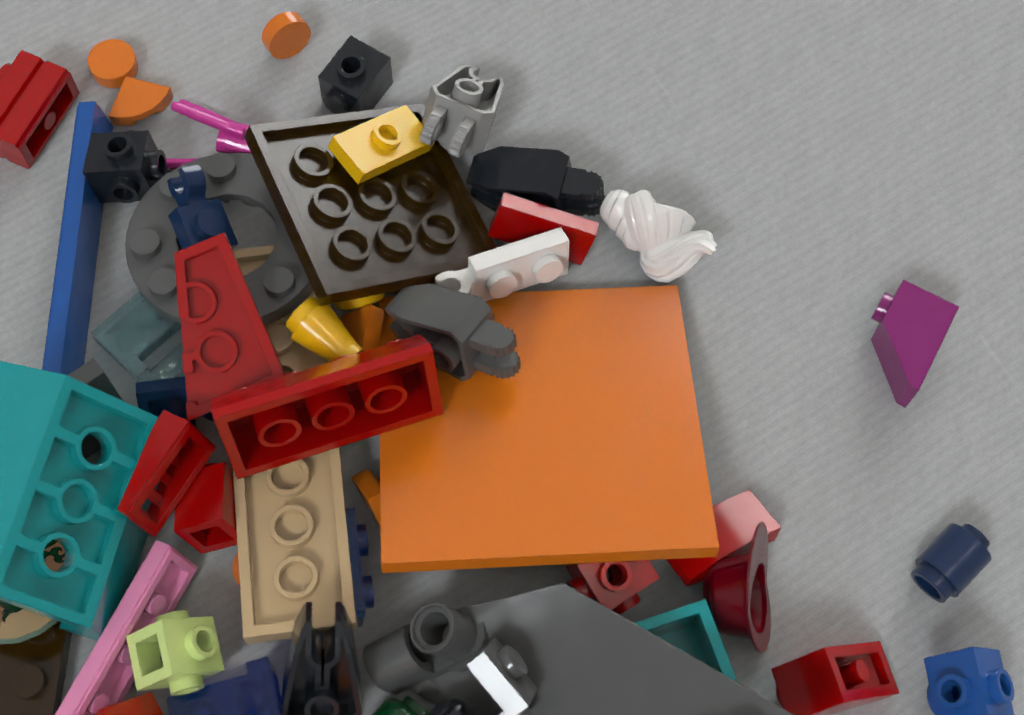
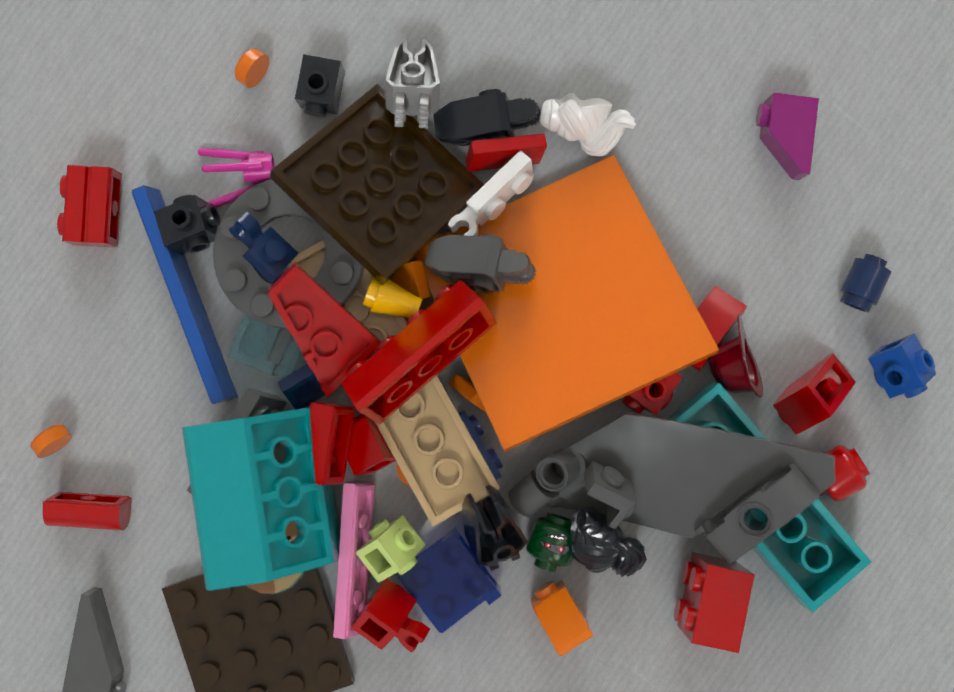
camera: 20 degrees left, 20 degrees up
(111, 62) = (135, 141): orange tile -> none
(138, 101) = (169, 164): orange tile -> none
(379, 144) = (366, 138): yellow plate -> none

